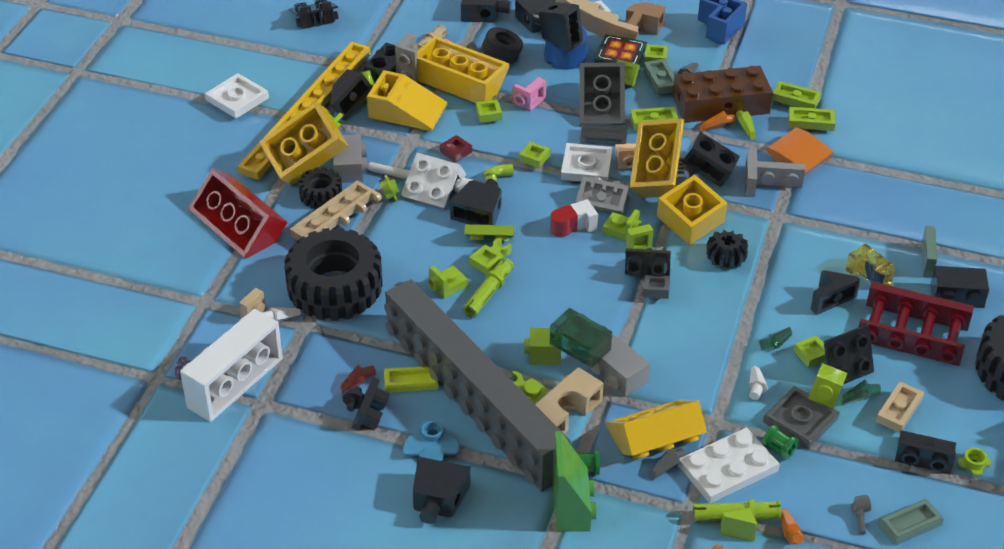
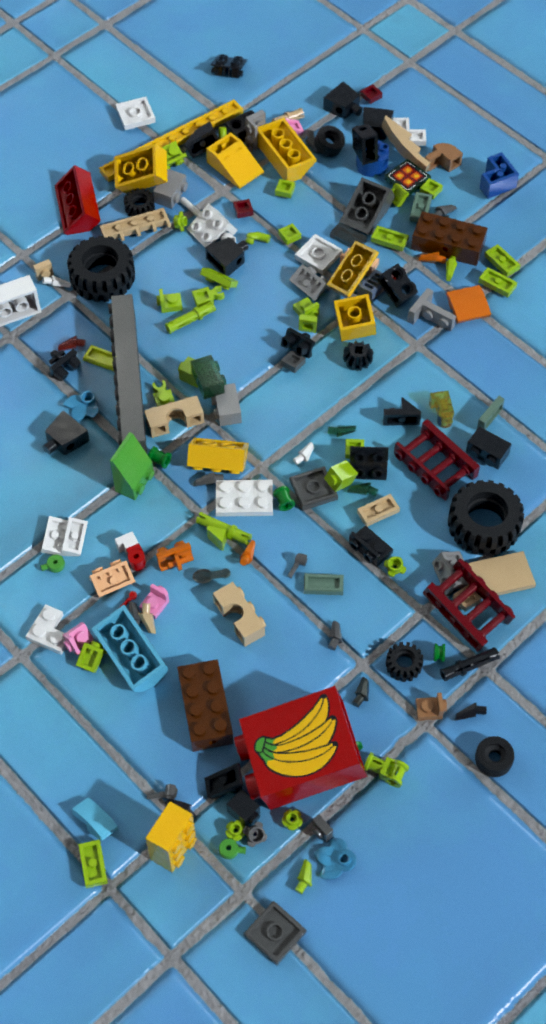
camera: 30 degrees right, 15 degrees up
(531, 95) = (322, 187): bright pink bracket -> none
(573, 218) = (277, 291): leg -> none

